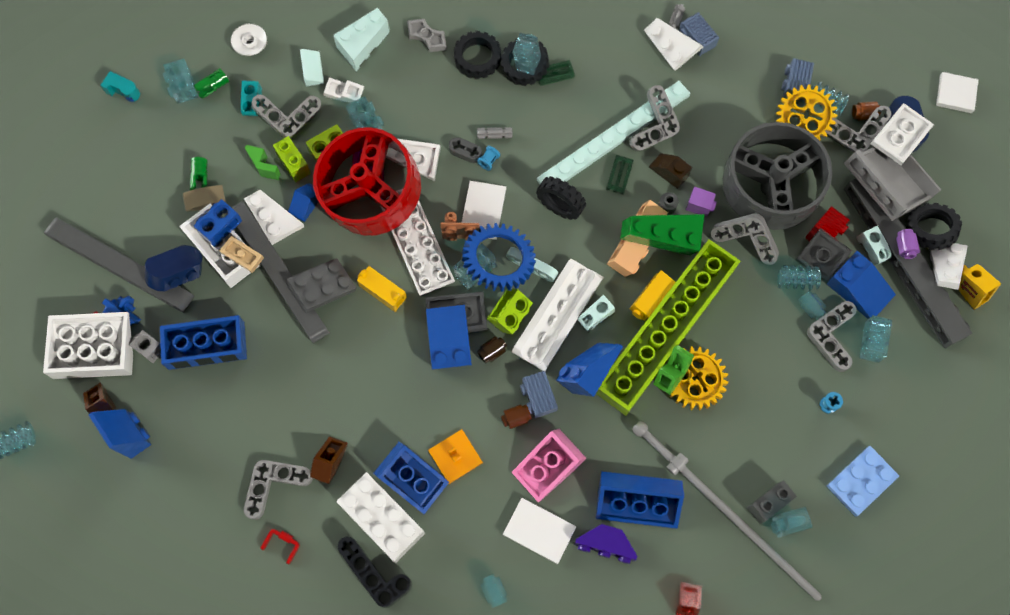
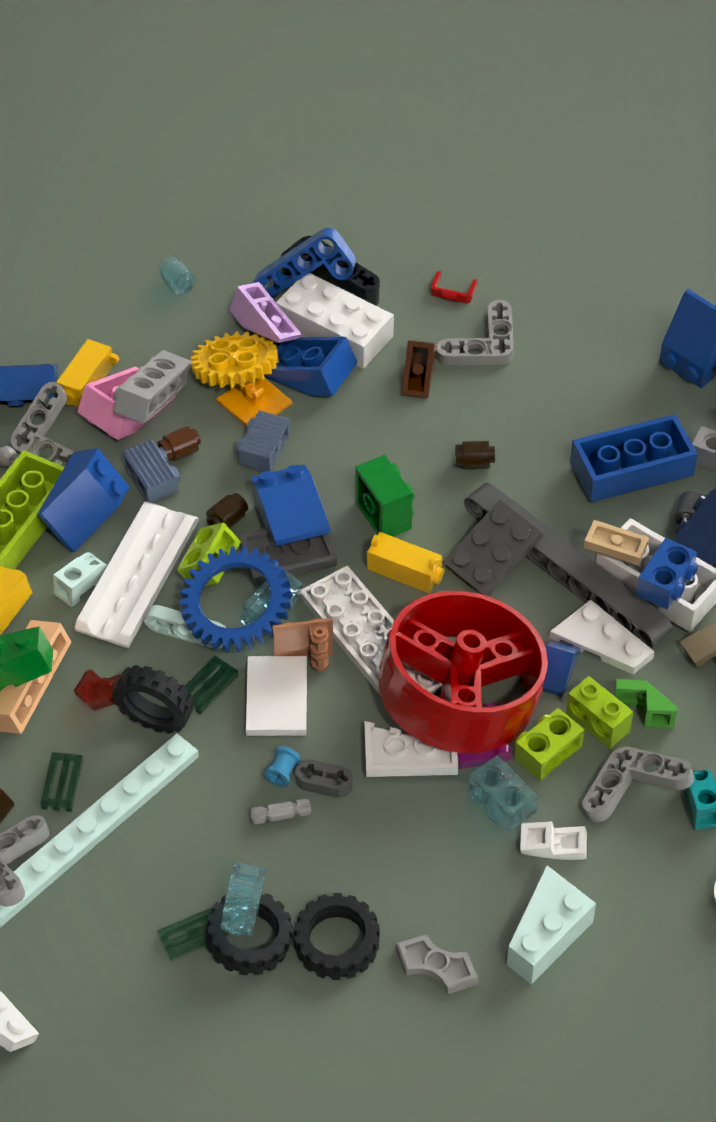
camera: 170 degrees right, 20 degrees down
(311, 67) = (622, 871): light aqua slope -> none
(311, 371) = (474, 454): none -> dark brown brick
(383, 333) = (384, 496): none -> green brick
(393, 564) = (300, 267): none -> blue beam
(434, 522) = (261, 314): none -> lavender slope
(455, 408) = (263, 441): none -> sand blue brick
(460, 506) = (234, 359): none -> yellow gear
(510, 481) = (152, 386): none -> light grey brick
(530, 229) = (221, 678): none -> clear green tile
(539, 530) = (132, 338): white tile -> none
(576, 496) = (88, 365): none -> yellow brick
(590, 224) = (95, 690): none -> clear red bracket
(607, 542) = (42, 336): dark purple slope -> none
(616, 437) = (38, 441): none -> light grey beam

